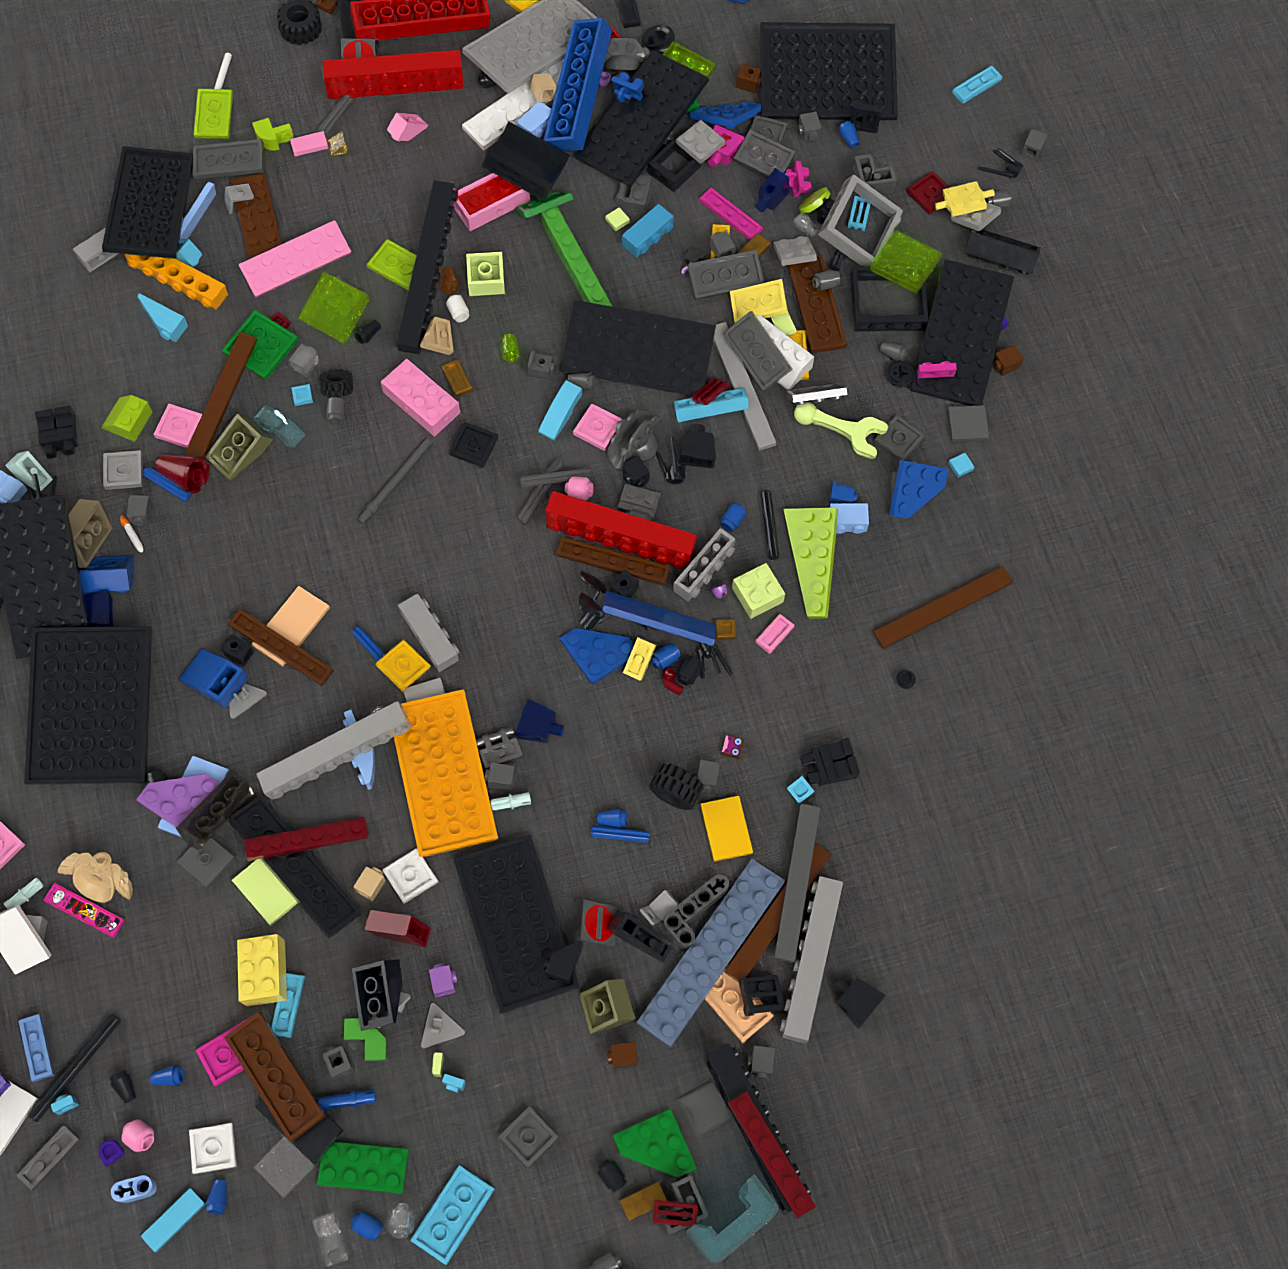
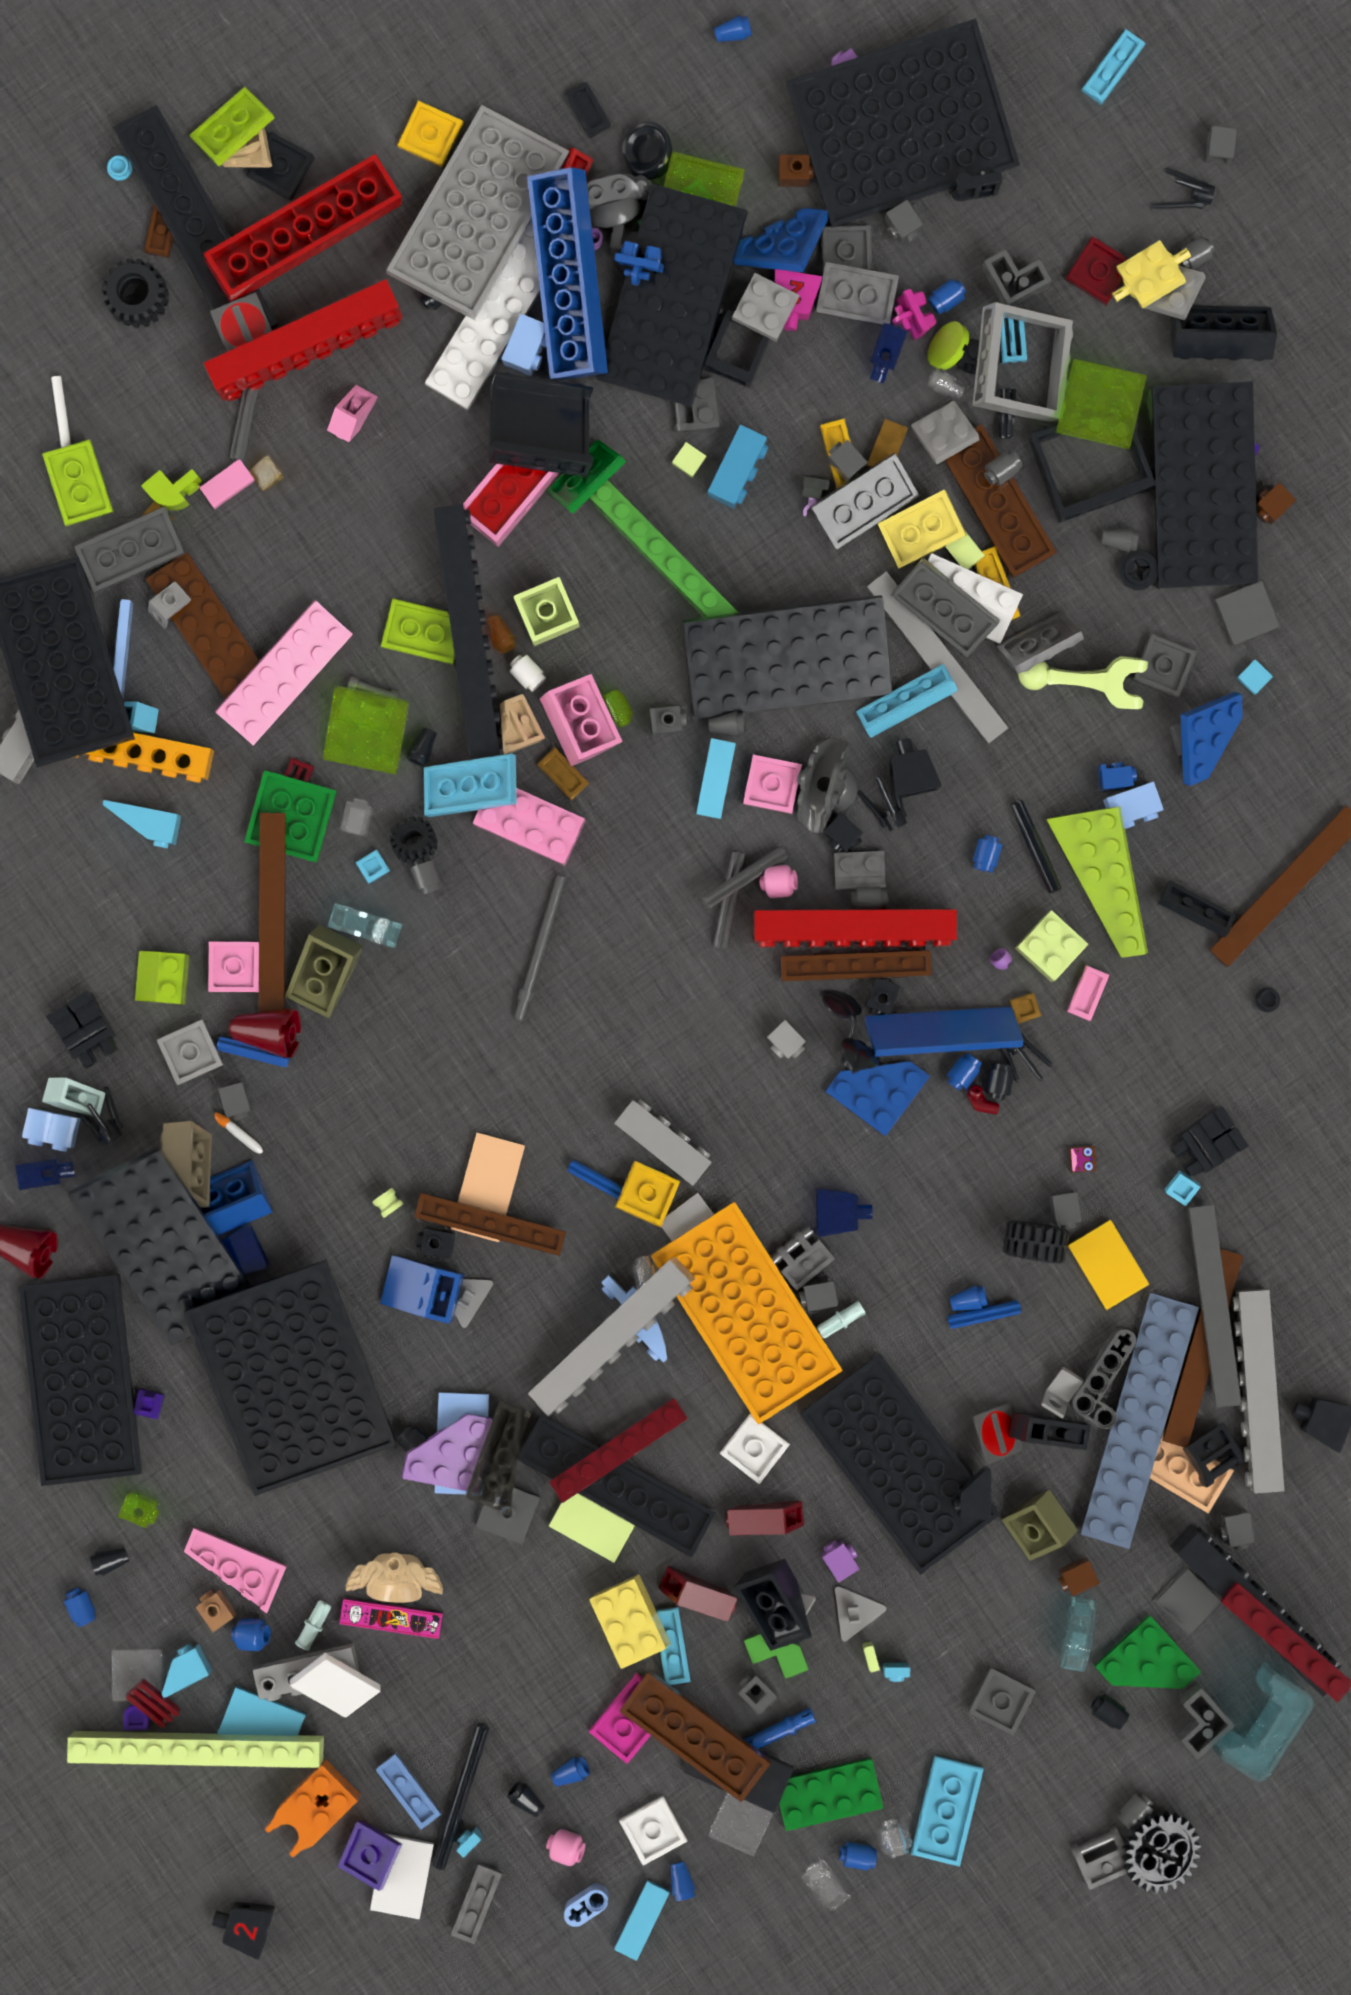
camera: 15 degrees left, 20 degrees up
(110, 1152) = (541, 1872): dark purple tile -> none
(214, 611) = (387, 1202): none -> yellowish green wheel
(323, 969) = (697, 1594): none -> slope
(370, 883) = (712, 1475): tan brick -> none
(389, 358) = (470, 785): none -> medium azure tile
(473, 444) = (622, 864): black plate -> none
(481, 345) = (580, 719): none -> bright pink slope
(543, 87) = (519, 292): tan brick -> none
(544, 594) = (786, 1041): none -> light grey brick
(607, 1102) = (1079, 1634): none -> clear light blue brick
(639, 658) = (934, 1087): light yellow plate -> none
(642, 1201) = (1153, 1725): pearl gold tile -> none
(656, 1212) = (1195, 1727): dark red tile -> none
(704, 564) = (973, 936): light grey brick -> none
(710, 391) = (906, 667): dark red tile -> none
(730, 214) = (839, 398): dark pink tile -> none
(823, 176) = (947, 296): none -> blue brick
(849, 133) = (961, 215): blue cone -> none
(872, 600) = (1197, 909): none -> black plate
(930, 370) = (1197, 554): dark pink plate -> none

